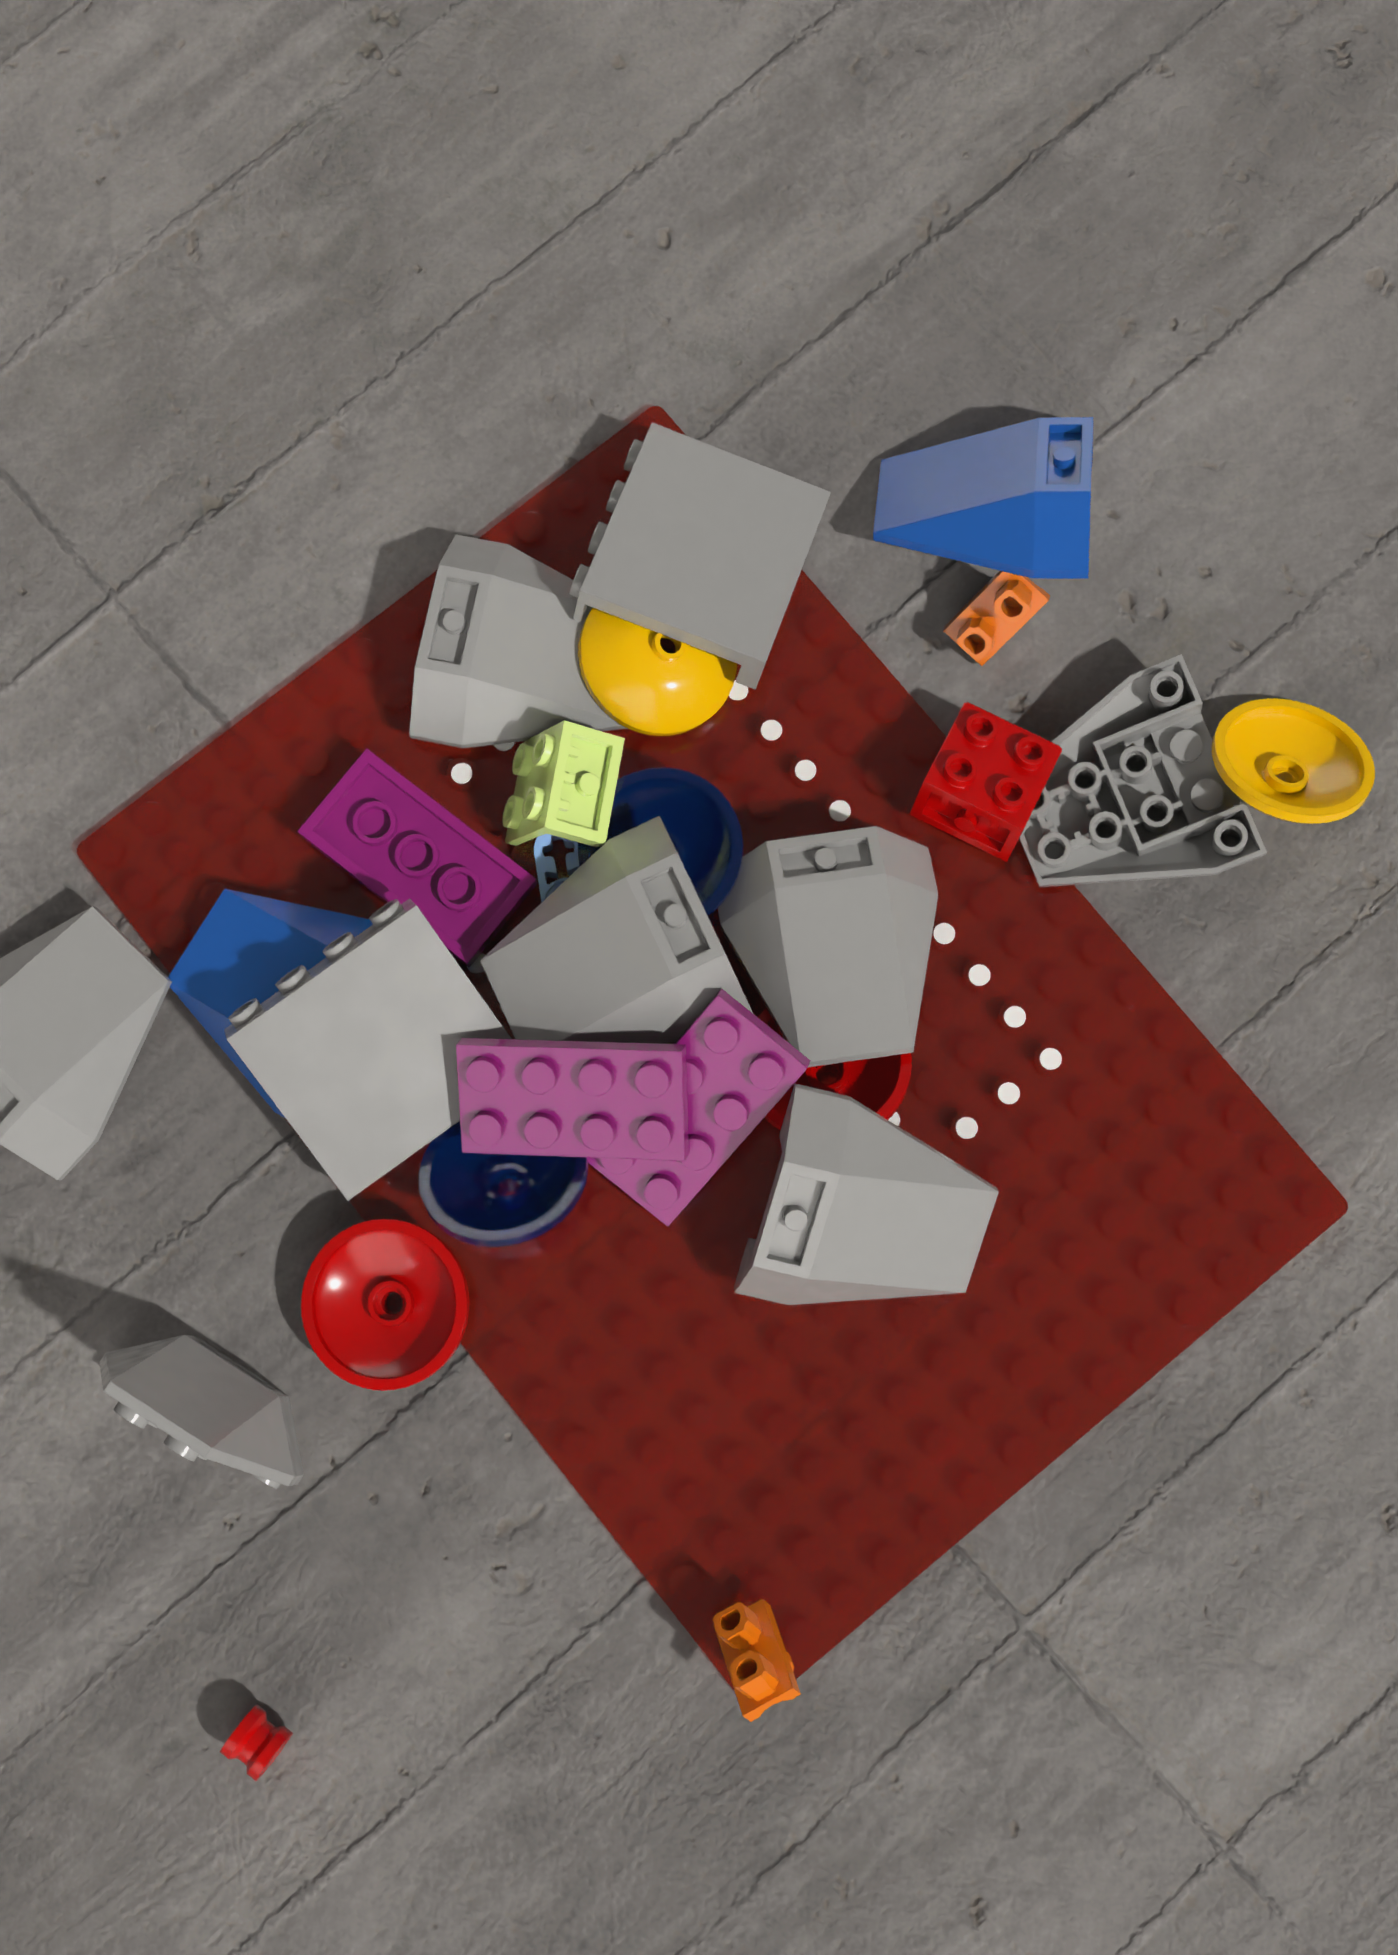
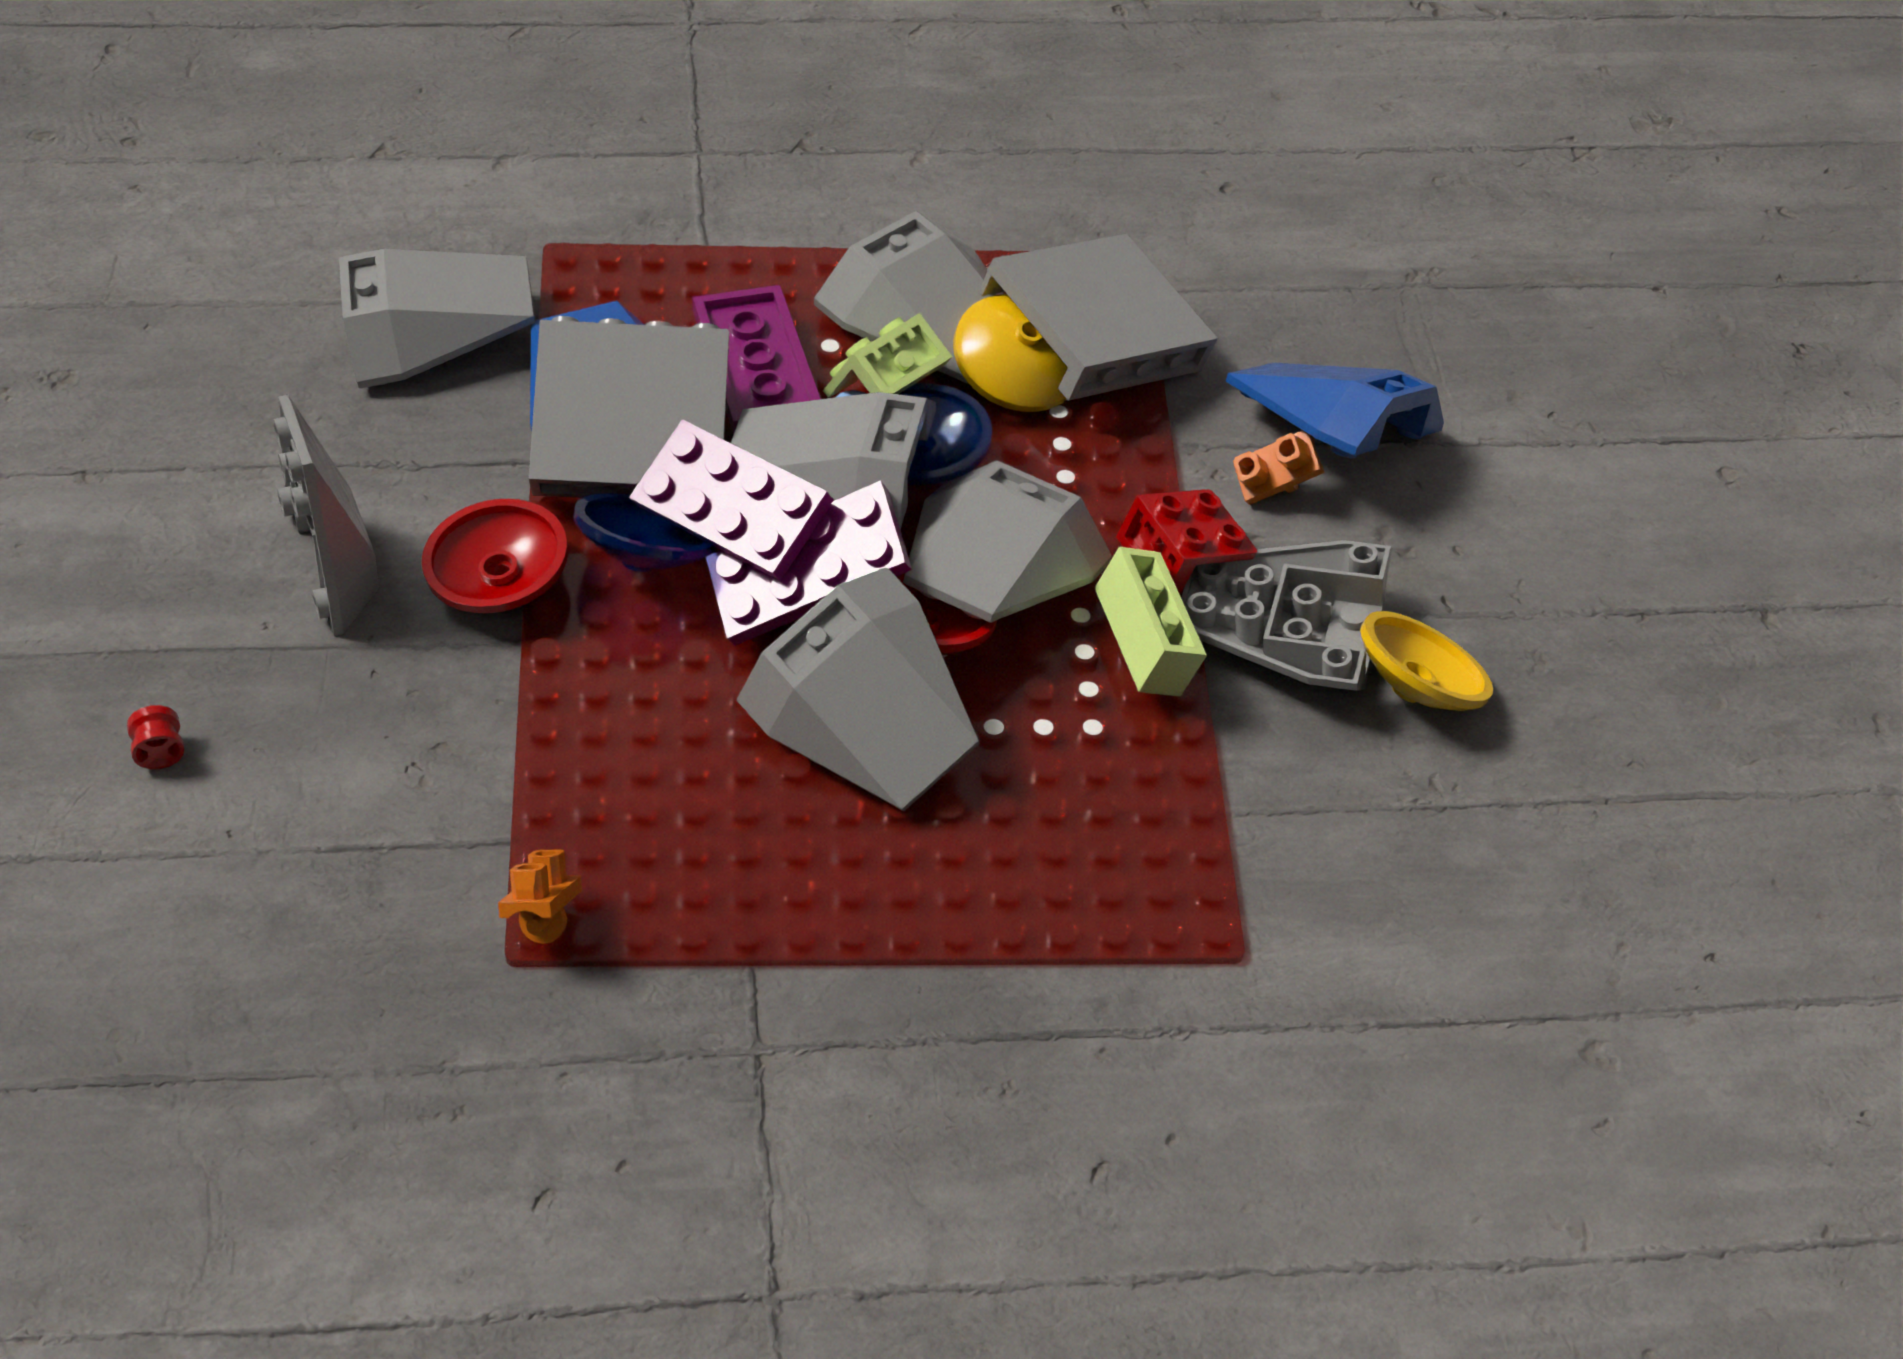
camera: 30 degrees right, 30 degrees down
(1033, 917) = (1150, 622): none -> yellowish green brick

